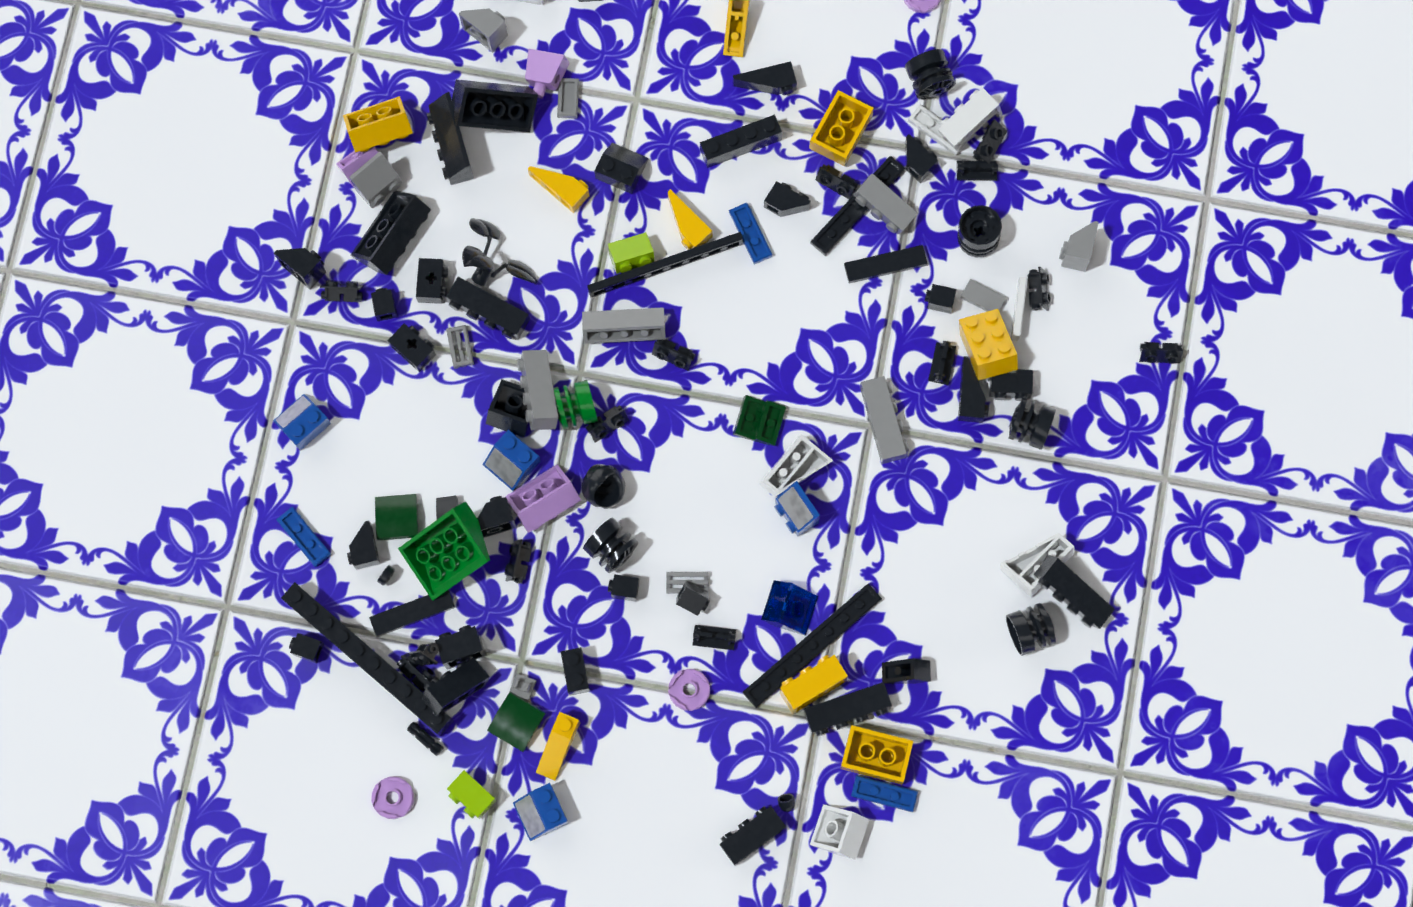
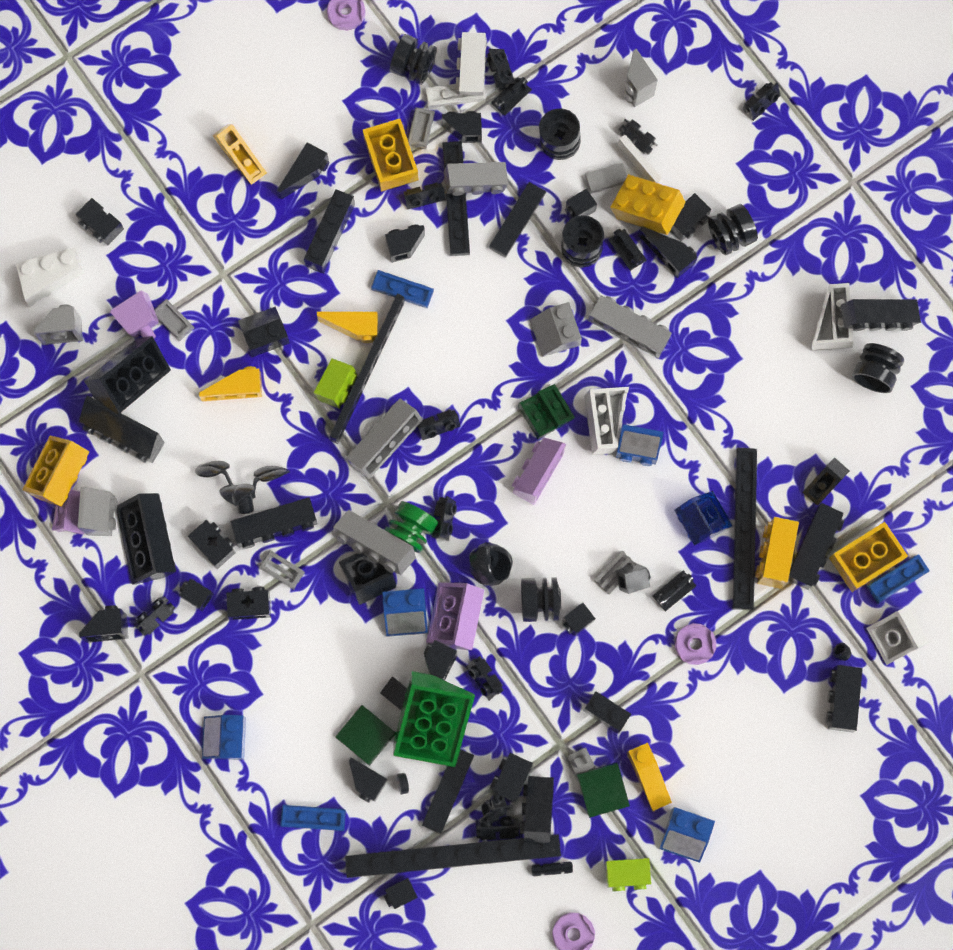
camera: 50 degrees left, 0 degrees up
(708, 456) = (538, 469): none -> lavender slope
(827, 369) = (556, 329): none -> light grey slope
(886, 130) = (421, 128): none -> light grey tile
(920, 317) = (582, 231): none -> black wheel

